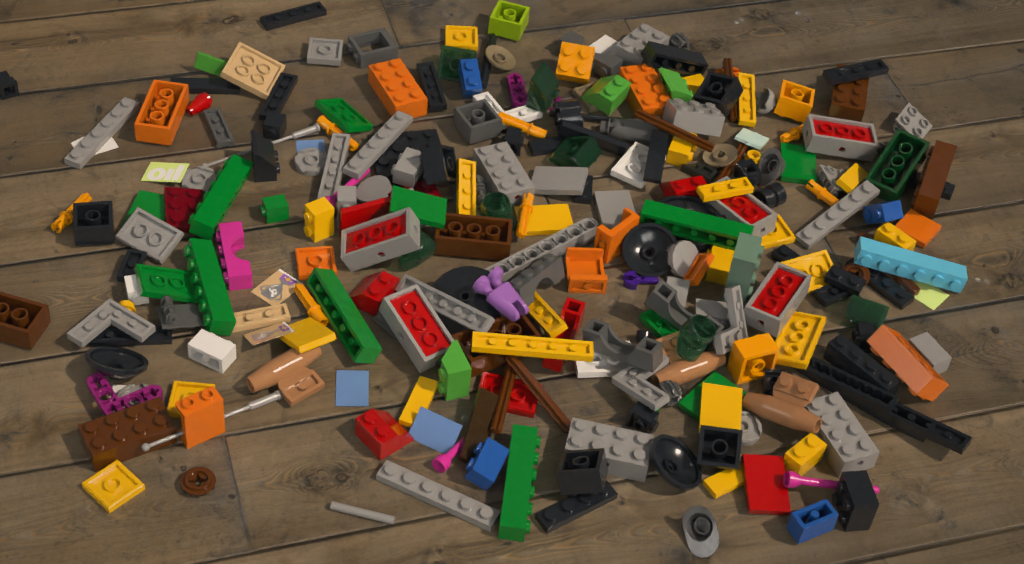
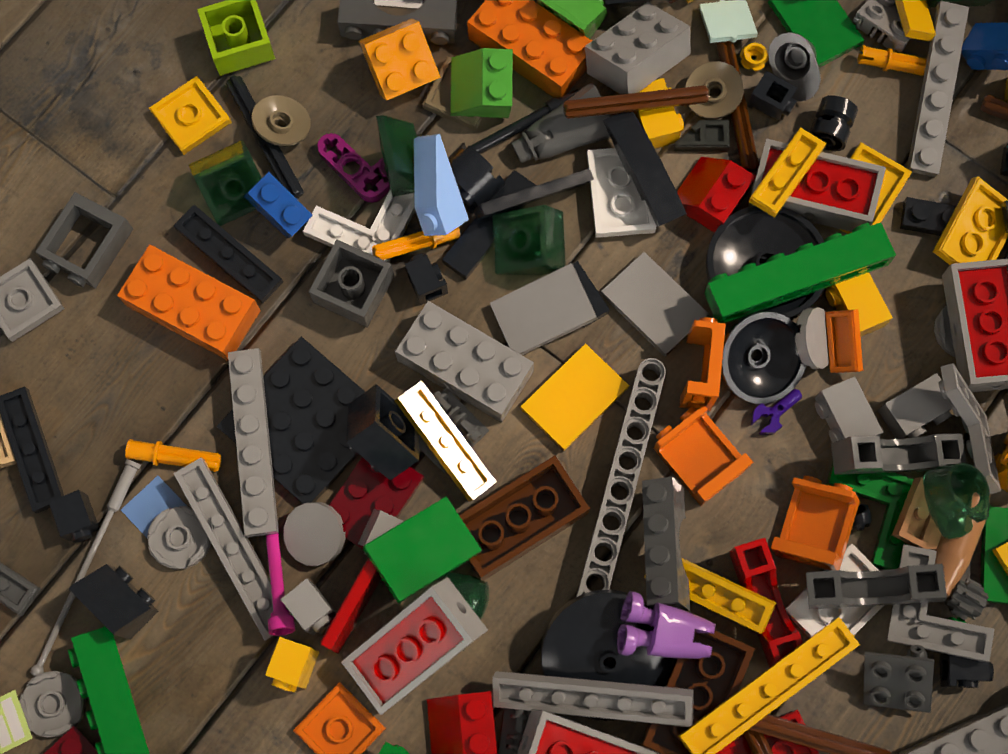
camera: 30 degrees left, 30 degrees up
(274, 209) = (206, 681): green brick -> none
(343, 115) = (154, 415): green tile -> none
(408, 168) = (336, 463): light grey brick -> none
(498, 206) = (513, 443): clear green helmet -> none
(524, 216) = (553, 420): light orange axle -> none
(545, 107) = (435, 188): none -> light blue slope
(602, 395) = (899, 680): none -> dark grey hinge
(626, 320) = (817, 523): none -> orange panel
(744, 264) = (932, 330): sand green brick -> none

